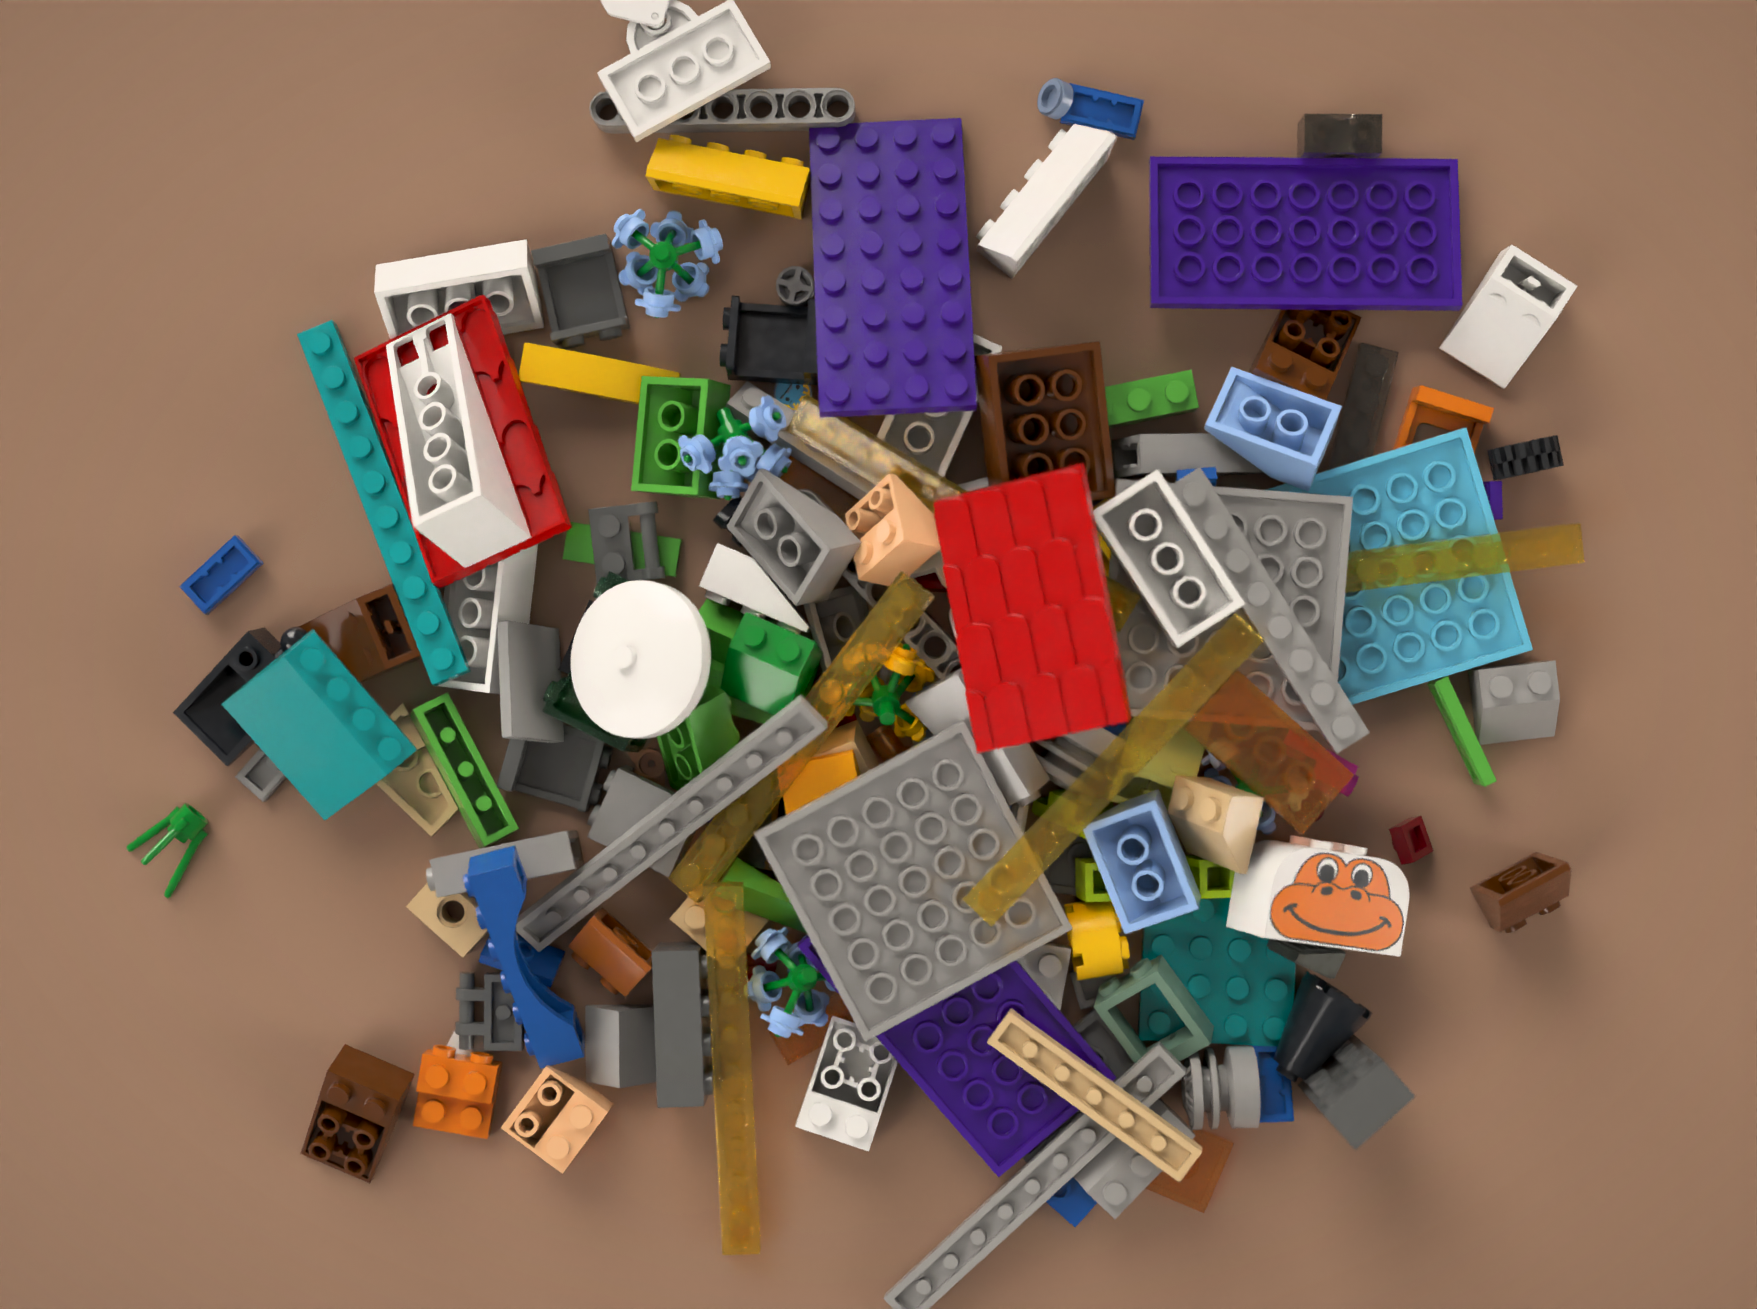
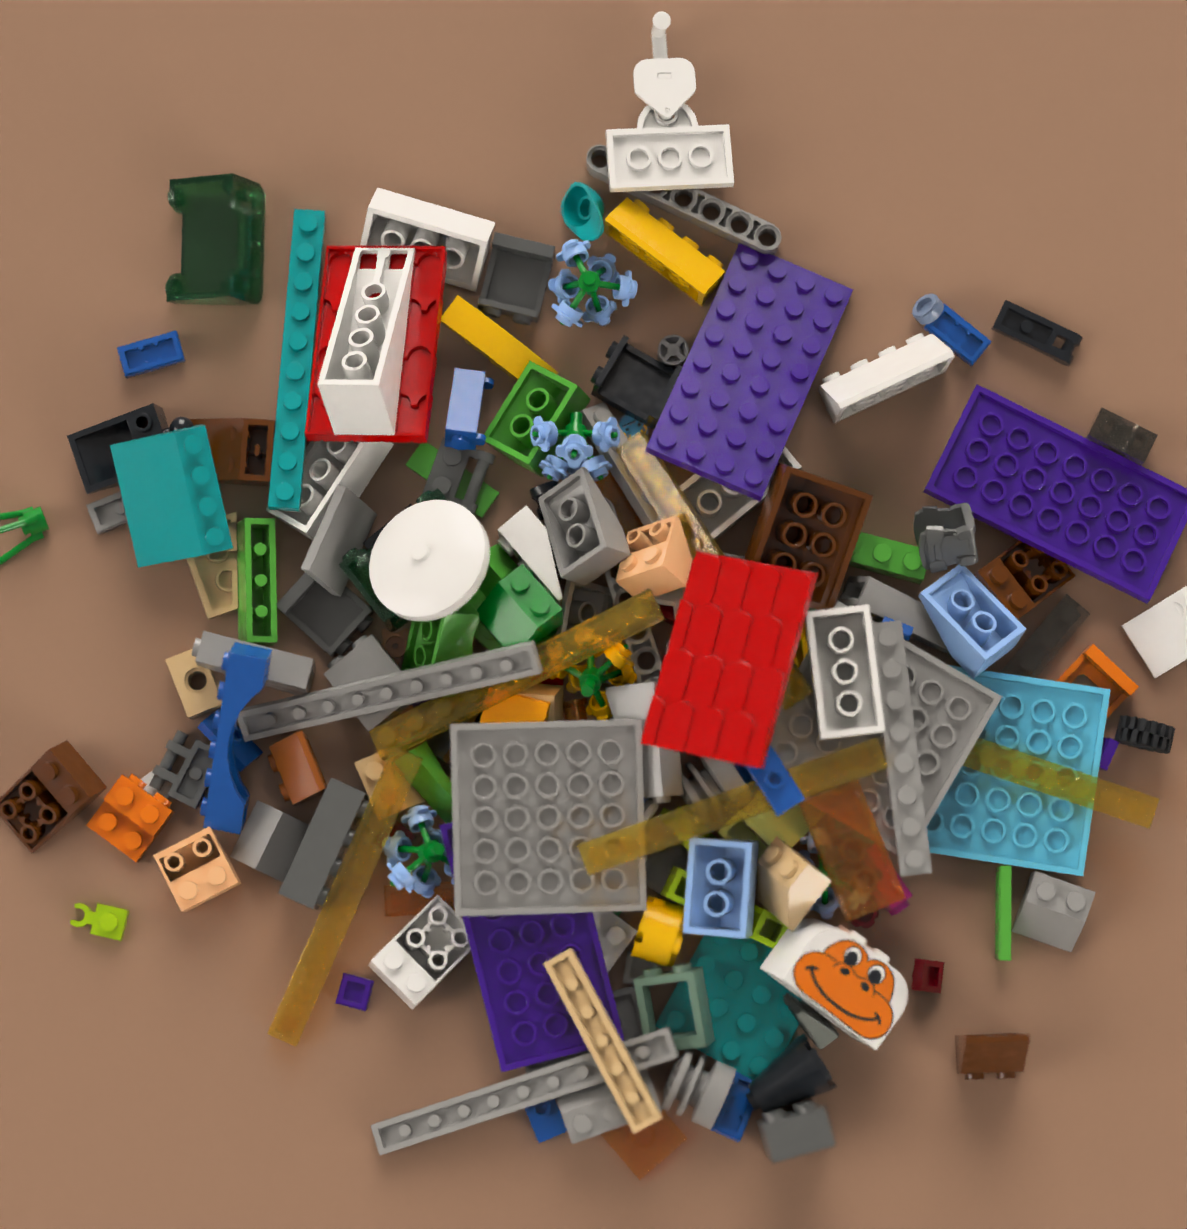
camera: 20 degrees right, 5 degrees down
(232, 410) = (219, 240): none -> clear green windscreen
(487, 1217) = (105, 921): none -> lime plate
(598, 466) = (465, 409): none -> brick
(618, 178) = (583, 211): none -> teal cap
(794, 1161) = (354, 991): none -> dark purple tile
(1154, 722) = (776, 784): none -> blue plate
(1188, 65) = (1036, 332): none -> black plate
(1201, 346) = (945, 536): none -> dark grey piece

